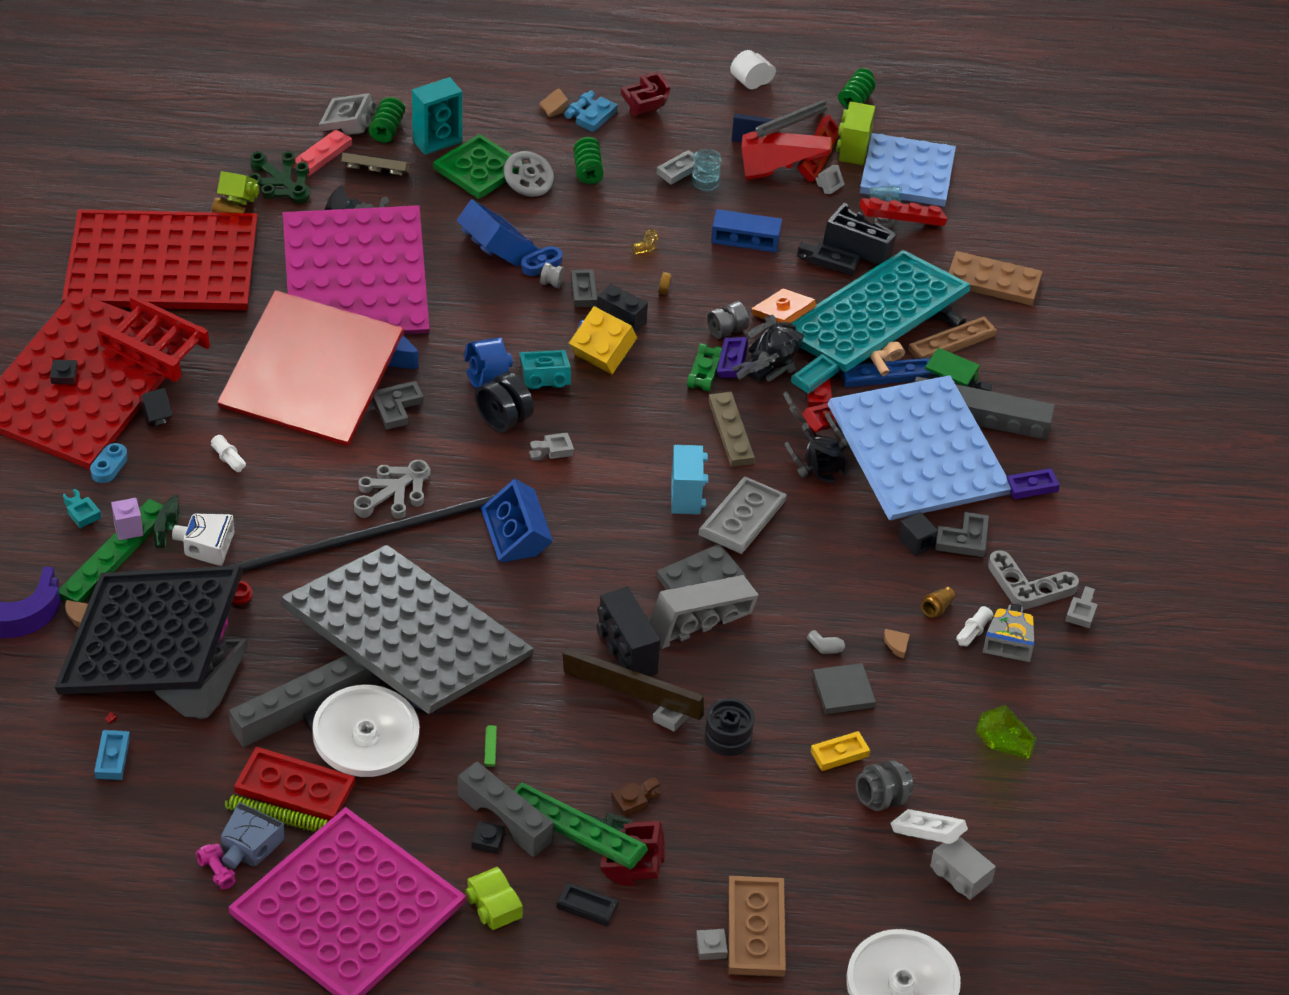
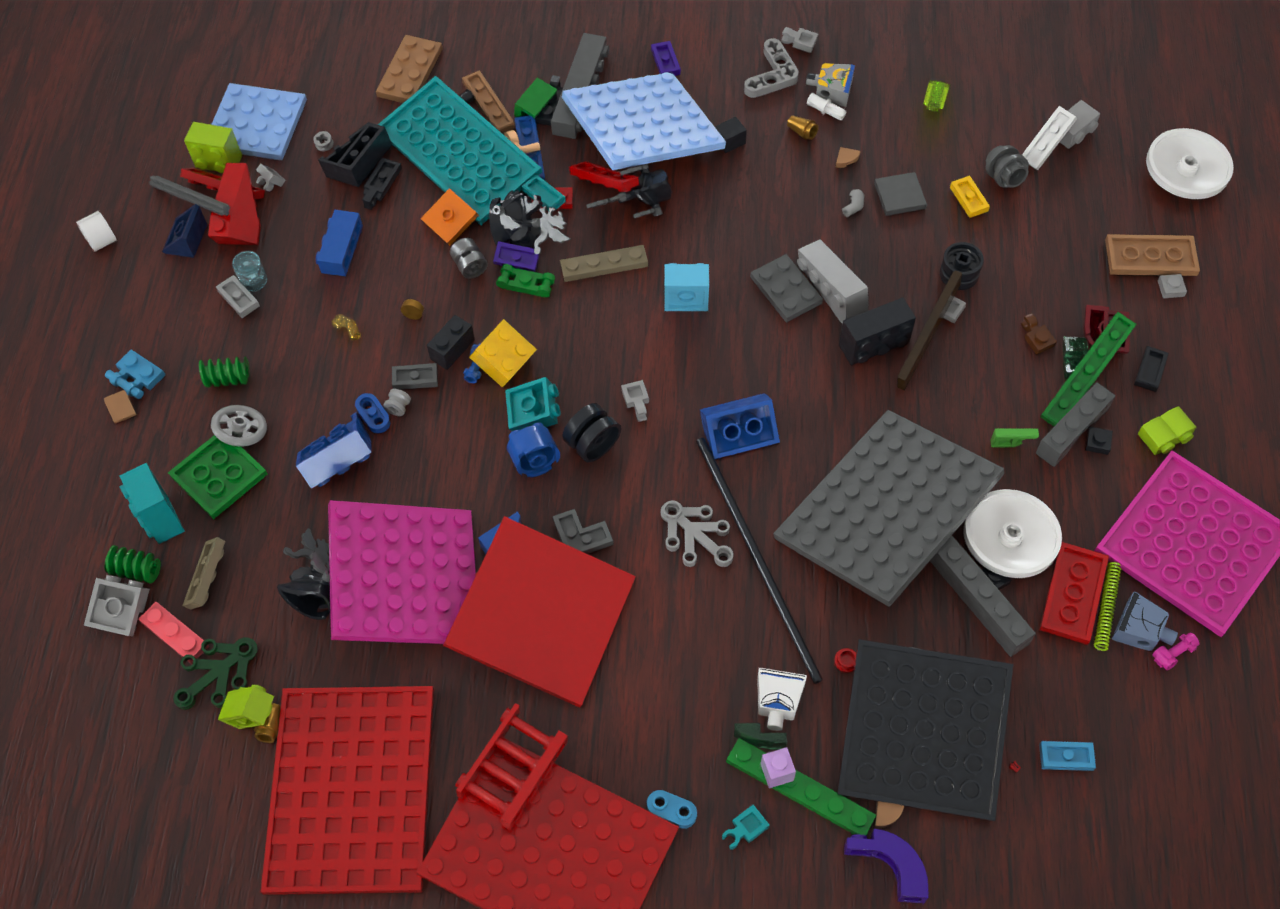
camera: 85 degrees left, 15 degrees up
(64, 372) = (554, 864): black plate -> none
(156, 407) = (598, 763): black brick -> none
(228, 453) = (657, 687): white axle -> none
(647, 95) = (125, 319): dark red brick -> none
(742, 515) = (725, 257): light grey tile -> none
(857, 88) = (139, 148): green piece -> none
(886, 193) = (295, 134): clear light blue cone -> none
(904, 212) = (328, 121): red plate -> none
(968, 540) = (728, 100): dark grey plate -> none

